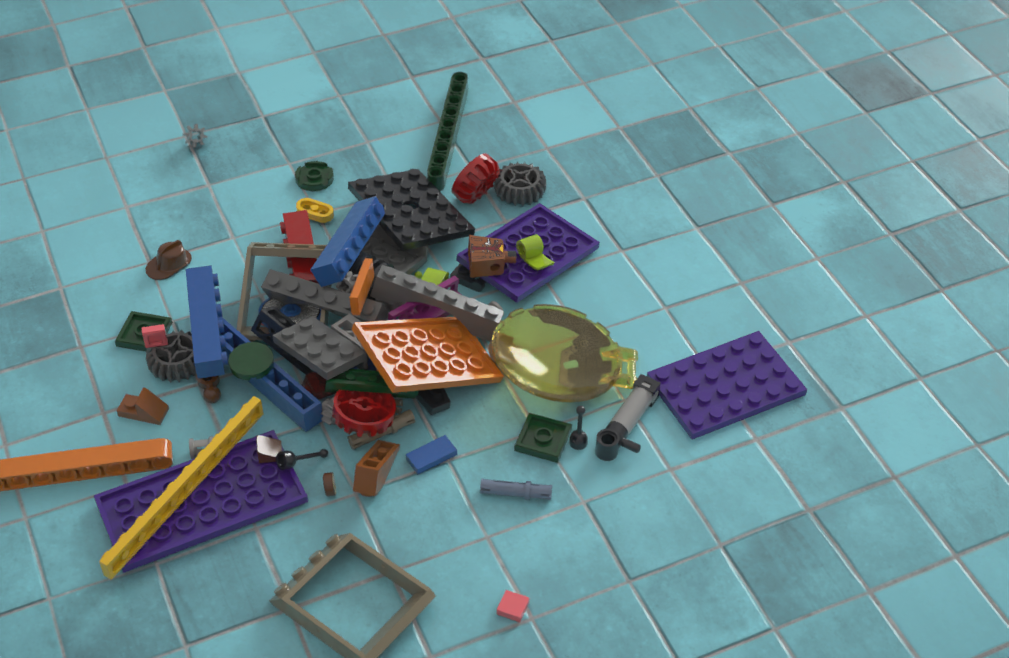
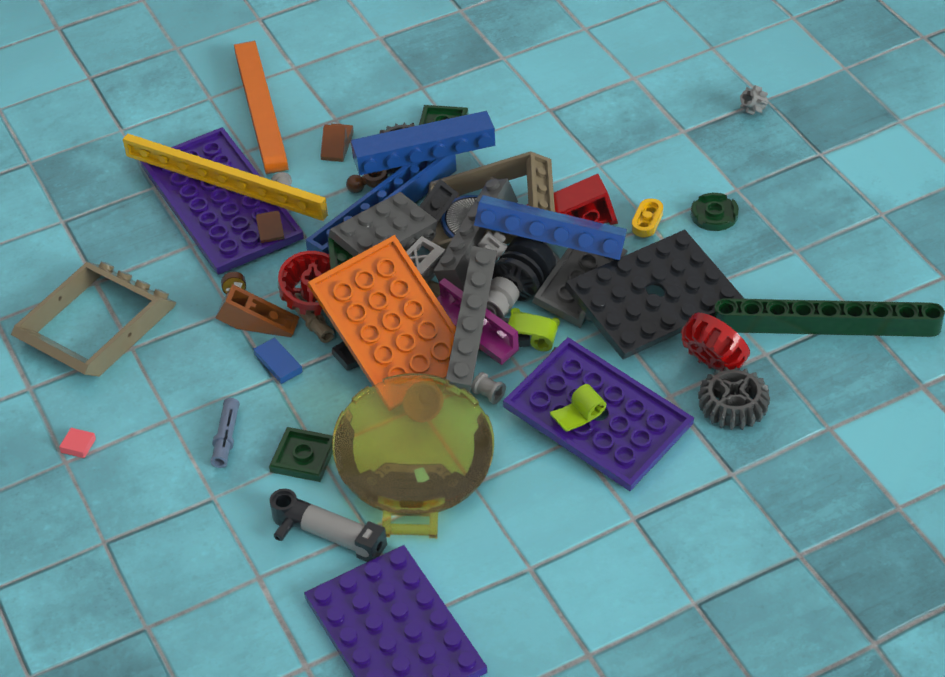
camera: 90 degrees right, 0 degrees up
(154, 336) = (407, 115): coral tile -> none
(169, 260) = (550, 121): reddish brown piece -> none
(251, 360) = (372, 187): dark green tile -> none
(287, 459) = (255, 242): black hinge -> none
(361, 286) = (461, 241): orange tile -> none
(487, 256) = (555, 358): dark orange torso -> none
(580, 436) = (298, 479): black hinge -> none

